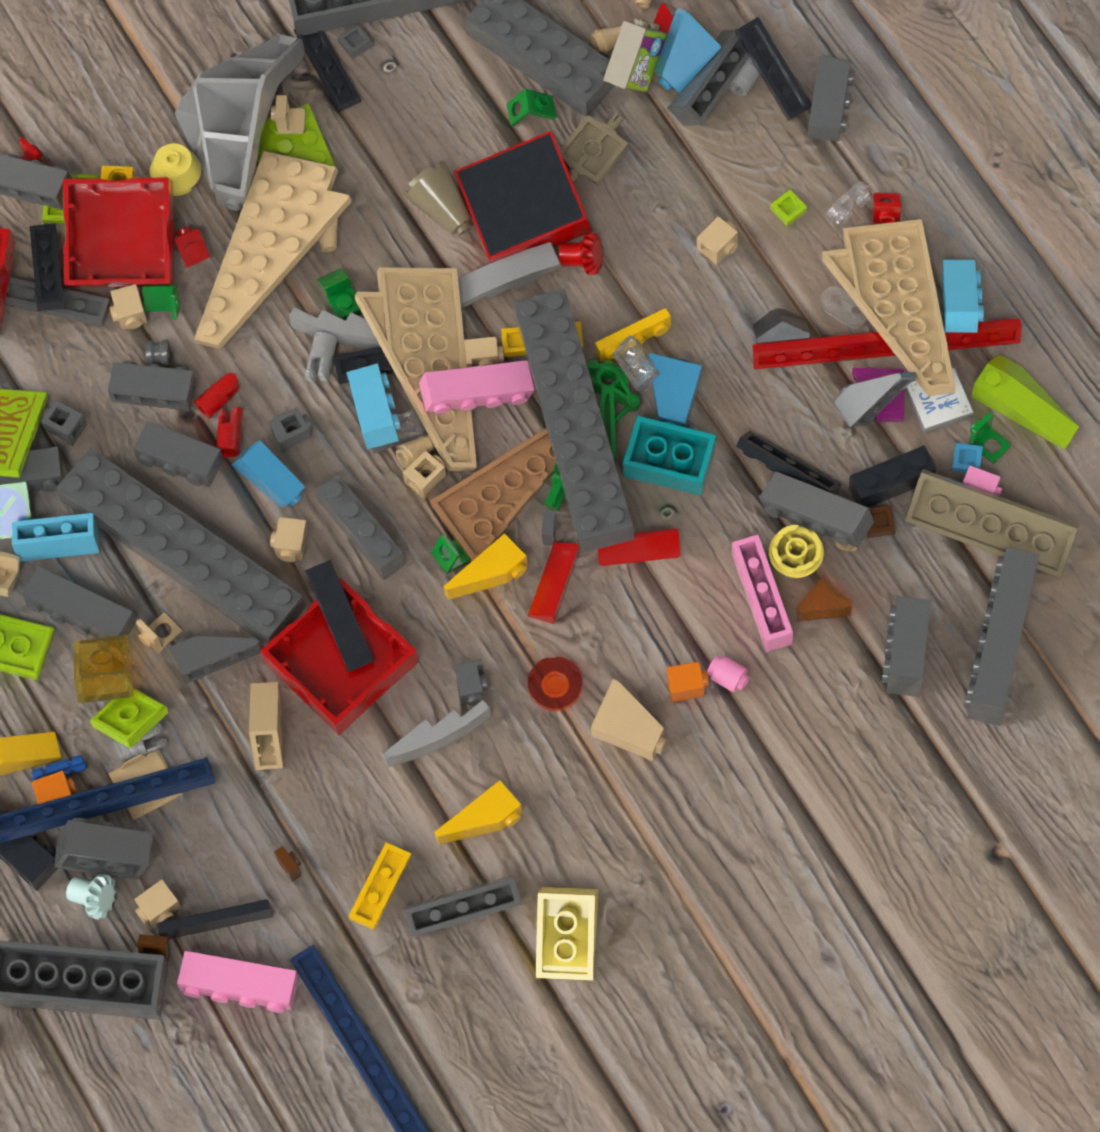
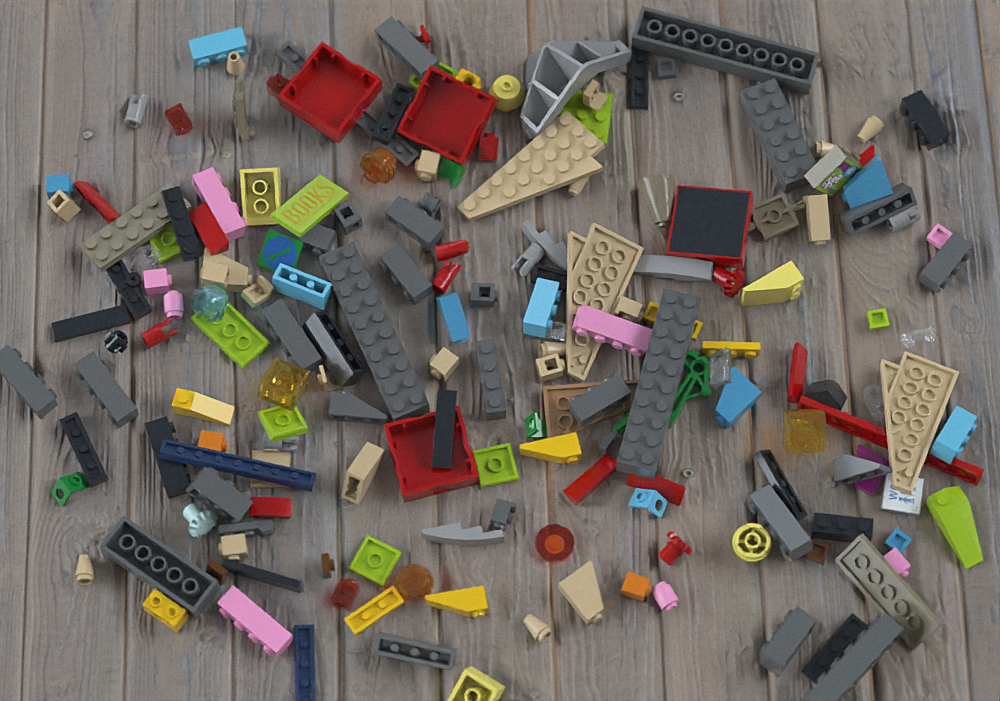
camera: 25 degrees right, 0 degrees up
(66, 339) = (379, 165): none -> clear orange cone
(76, 764) = (235, 434): blue axle -> none
(116, 1030) = (165, 610): none -> yellow brick
(141, 592) = (333, 348): none -> black brick
(165, 869) = (249, 528): none -> dark grey hinge
(174, 829) = (270, 507): none -> red slope
(332, 896) = (345, 586): none -> clear red brick
(339, 293) = (562, 225): green slope -> none
(345, 825) = (375, 561): none -> lime tile
(409, 824) = (414, 582): none -> clear orange cone
(428, 627) = (495, 465): none -> lime tile
(510, 479) = (599, 399): none -> dark grey brick
(532, 103) = (753, 167): green bracket -> none
(595, 796) = (537, 628): none -> tan cone
(638, 569) = (647, 499): none -> medium azure bracket
(645, 232) = (776, 287): none -> light yellow slope
(646, 124) = (817, 218): none -> tan slope
(669, 455) = (708, 438): teal brick -> none
(706, 610) = (674, 549): none -> red gear
(718, 240) = (820, 316): tan brick -> none
(729, 324) = (797, 373): none -> red slope
(762, 593) = (715, 557): bright pink brick -> none
(773, 68) = (919, 224): black plate -> none
(780, 385) = (804, 430): none -> clear yellow brick
(805, 71) = (938, 236): none -> bright pink plate
(823, 603) = (750, 584): clear orange slope -> none
(886, 211) = (940, 356): red bracket -> none
(966, 626) = (834, 648): none -> black tile
(982, 432) = (918, 529): green bracket -> none

